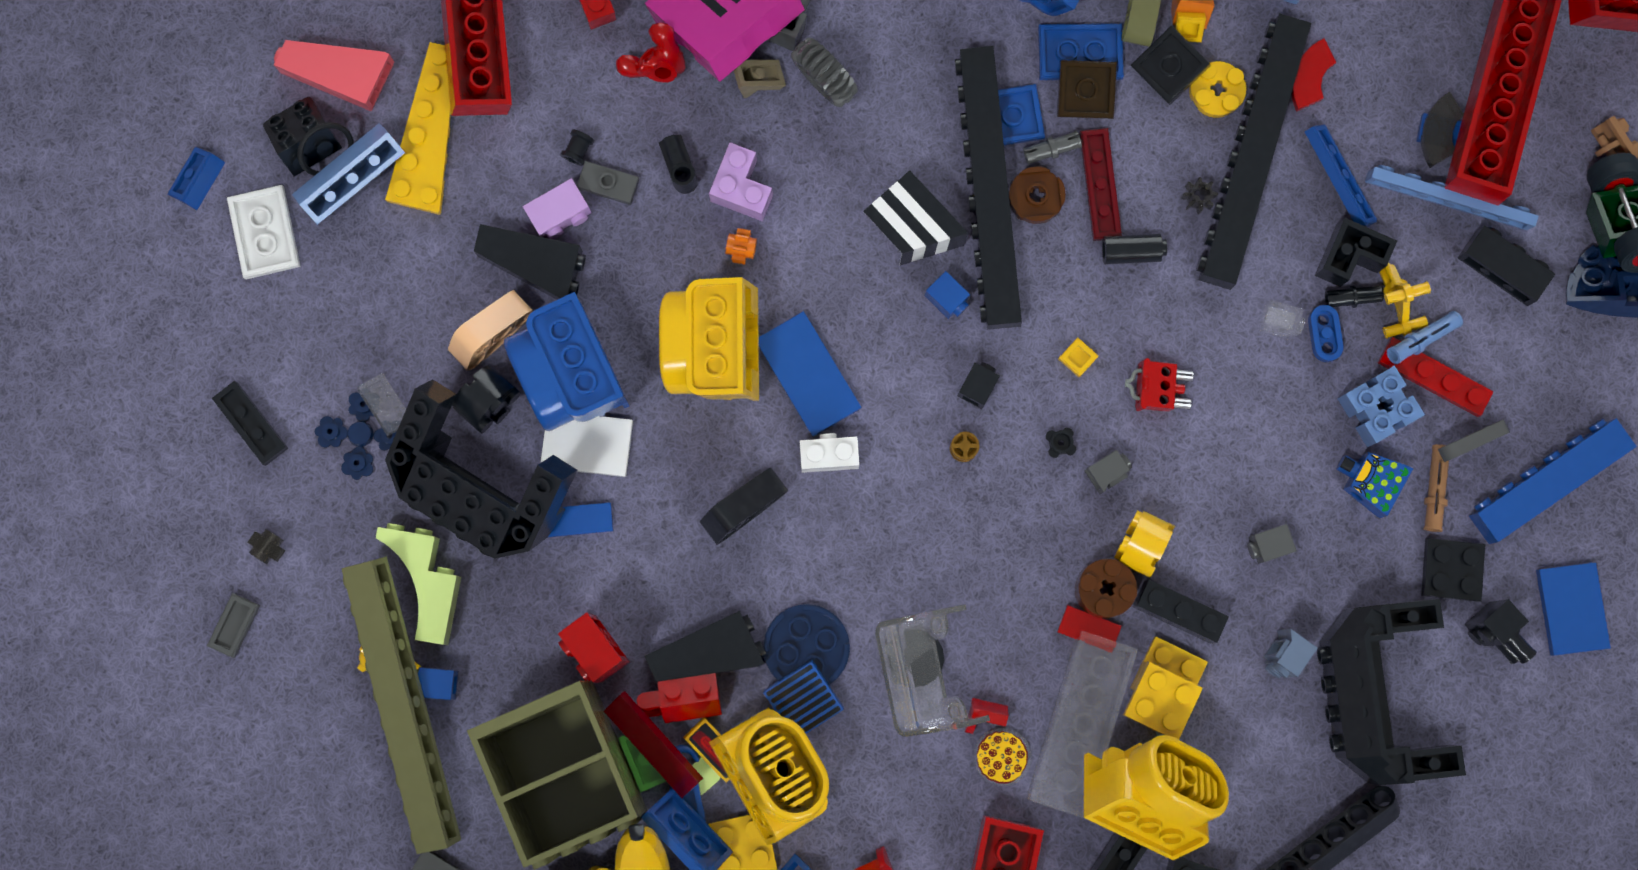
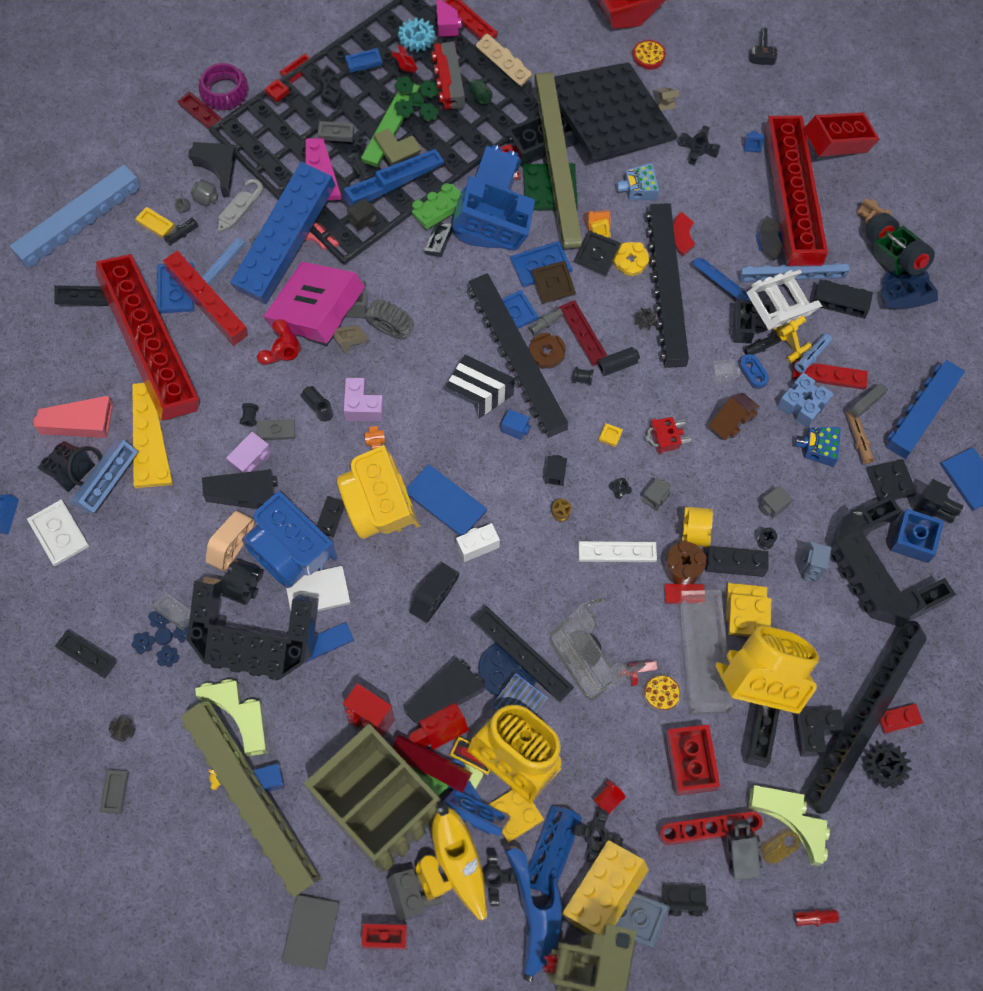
camera: 20 degrees left, 15 degrees down
(639, 341) = (330, 516): none -> black plate
(831, 637) = (523, 654): none -> black plate
(1019, 534) = (617, 551): none -> white tile
(1073, 254) = (583, 376): none -> black bush
(1245, 594) = (771, 534): none -> black bush
(1269, 393) = (735, 412): none -> reddish brown brick
(1409, 263) = (784, 312): none -> white window
(1452, 667) = (917, 535): none -> blue brick

